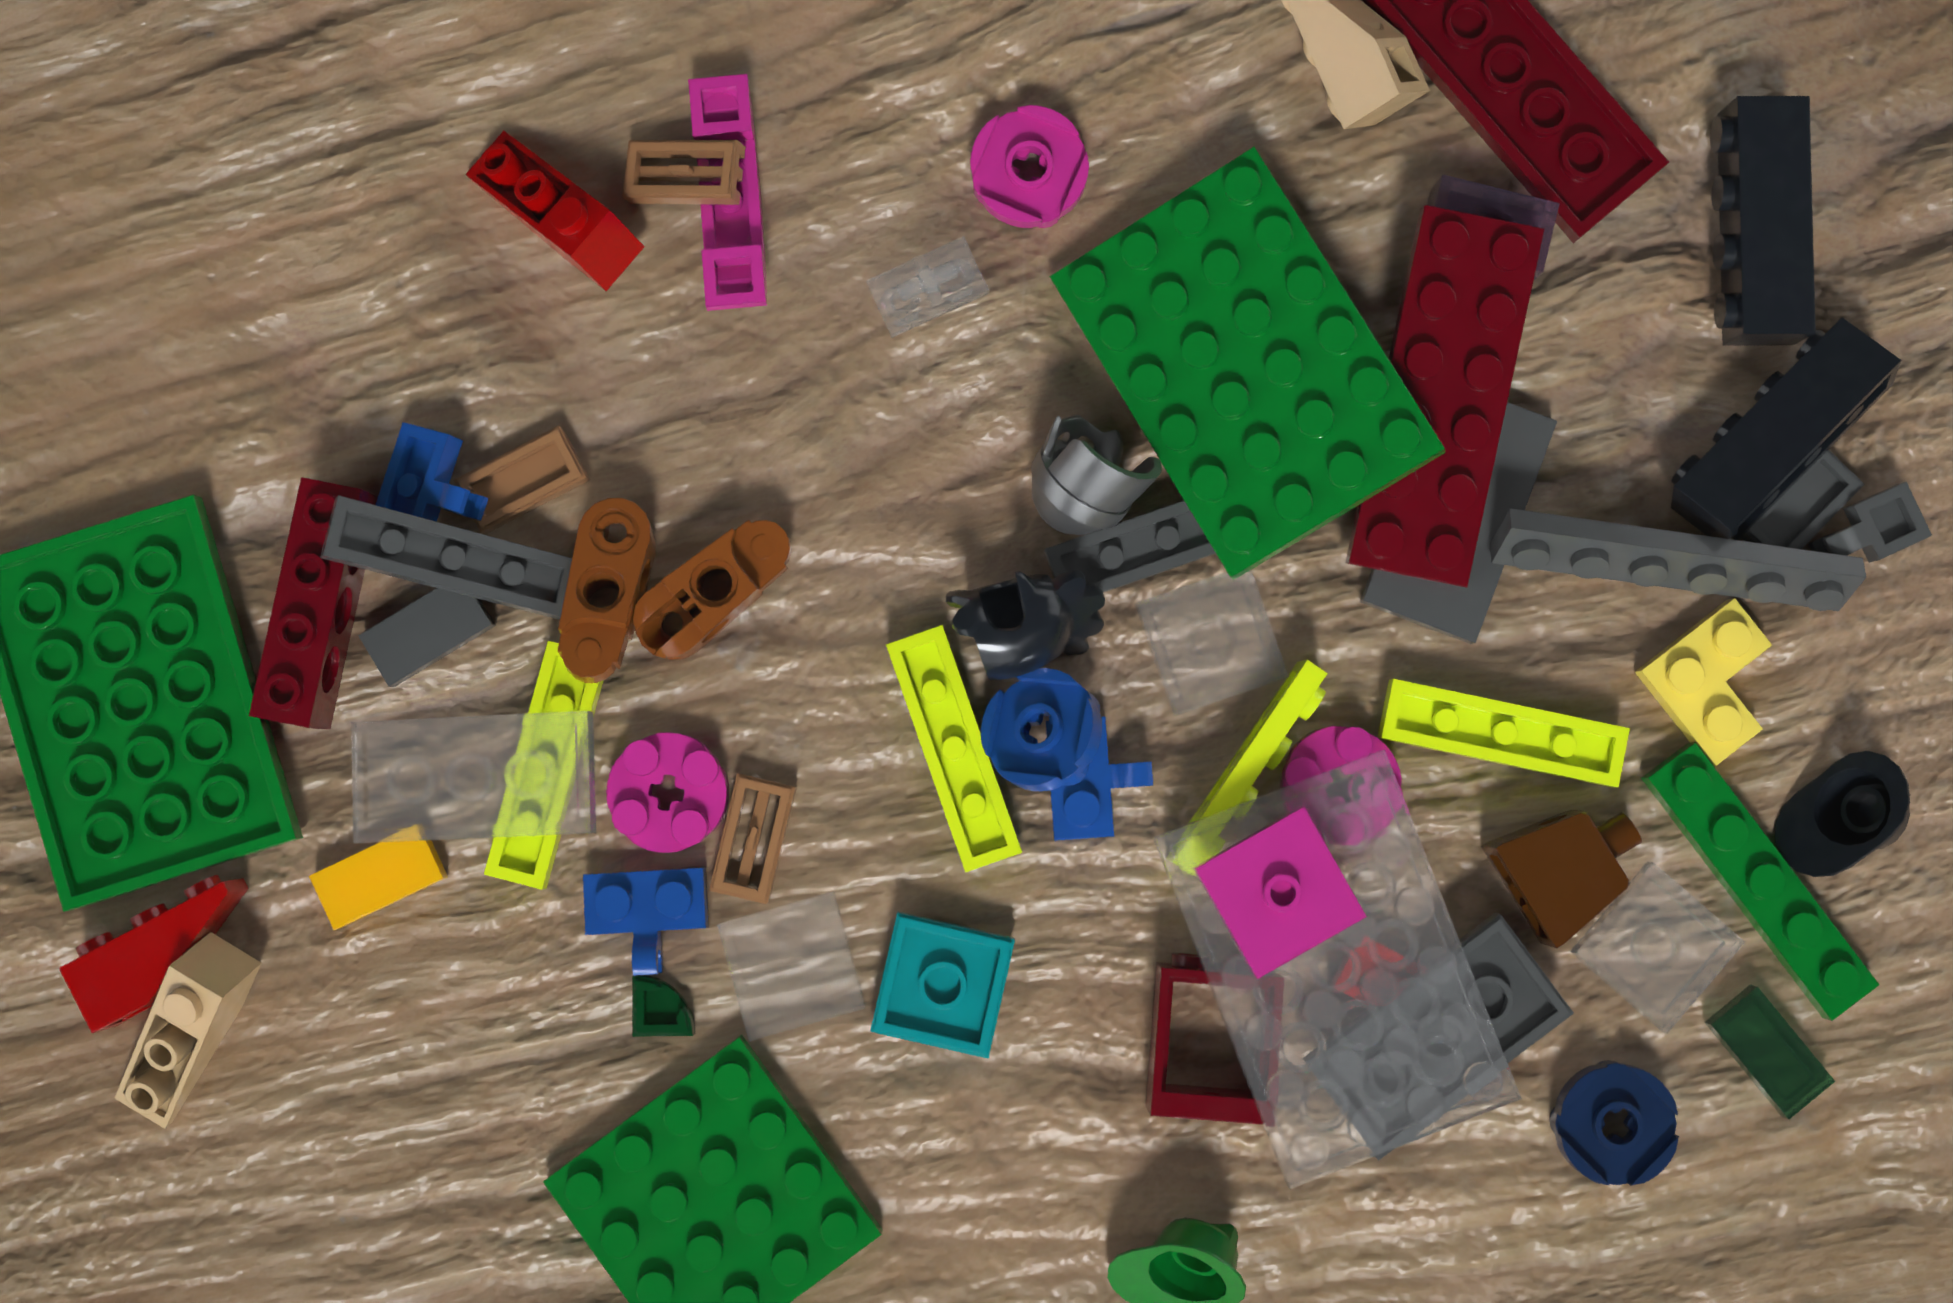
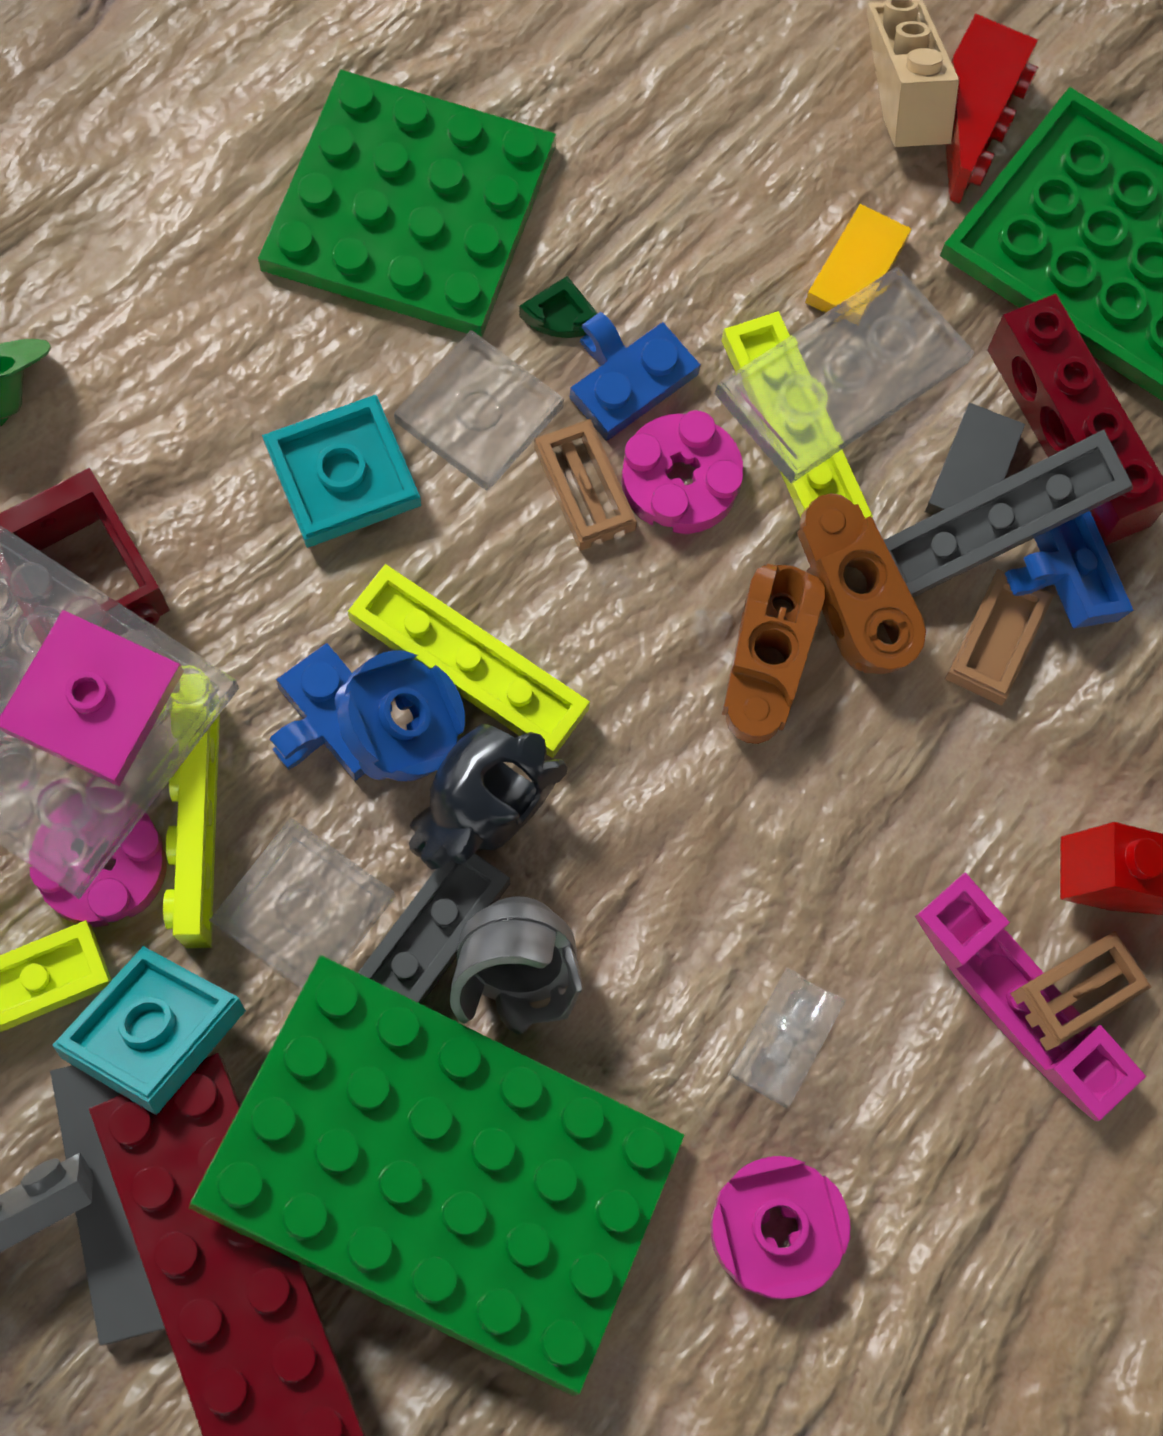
camera: 140 degrees right, 15 degrees down
(1386, 617) = (149, 1029): none -> teal plate

